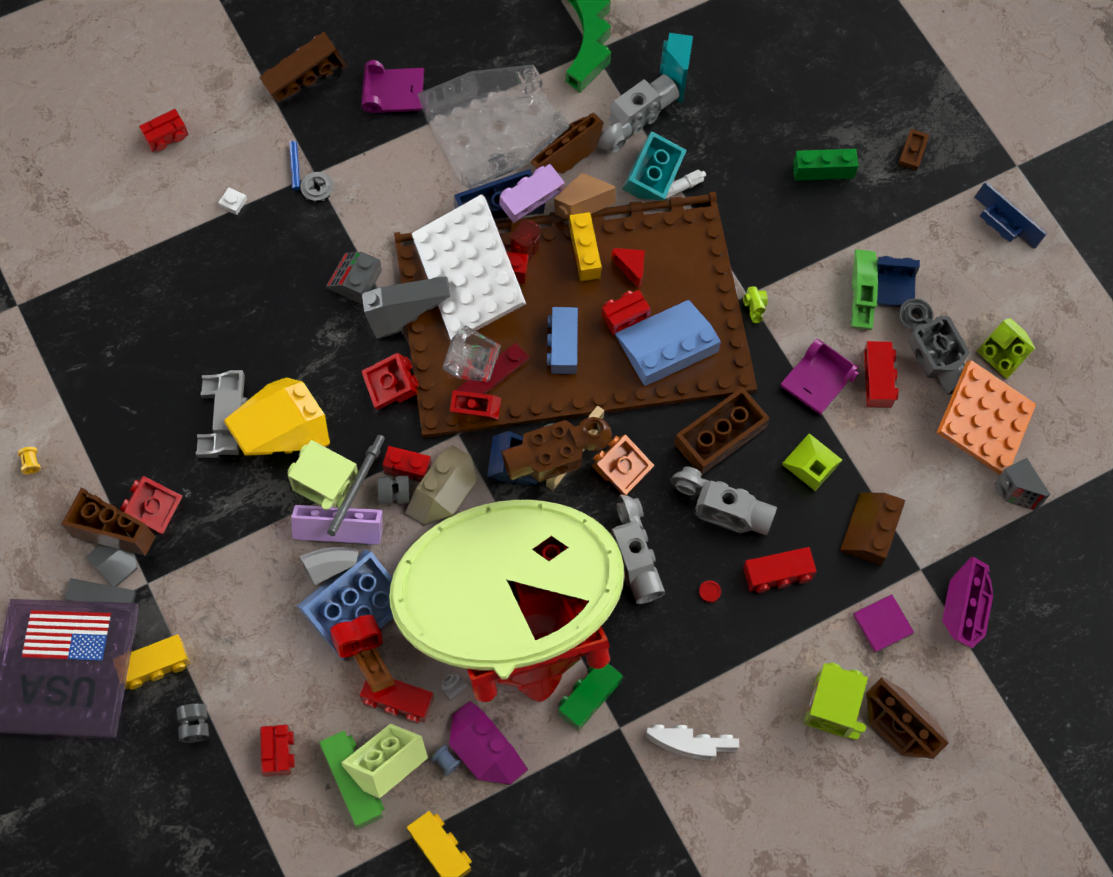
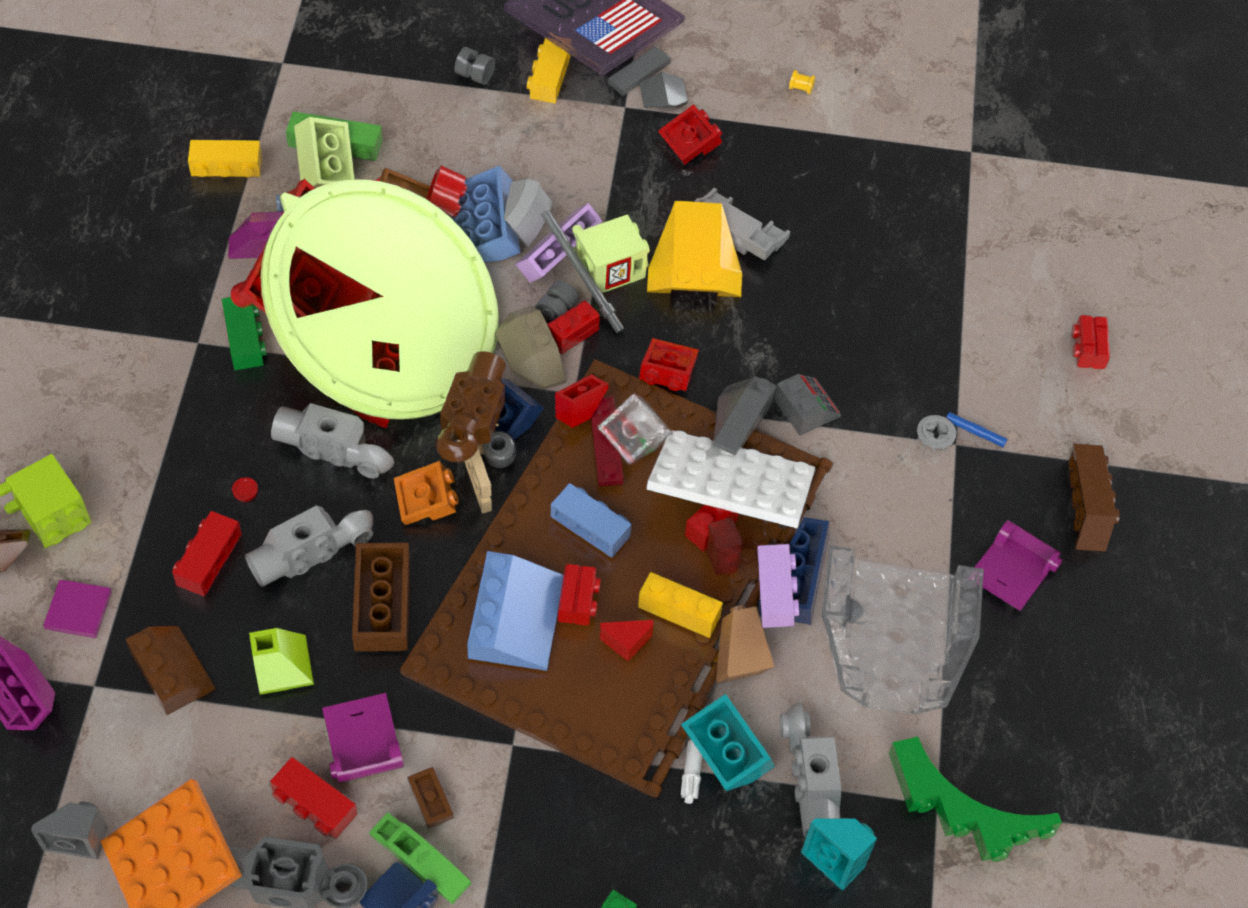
camera: 125 degrees right, 10 degrees down
(106, 525) = (704, 86): reddish brown wedge -> none
(232, 201) = (969, 358): white plate -> none
(276, 750) = (403, 104): red brick -> none
(571, 145) = (814, 672): reddish brown wedge -> none
(681, 742) = (135, 370): white slope -> none
(757, 302) = (497, 738): lime plate -> none
(822, 311) = (430, 797): none -> reddish brown plate

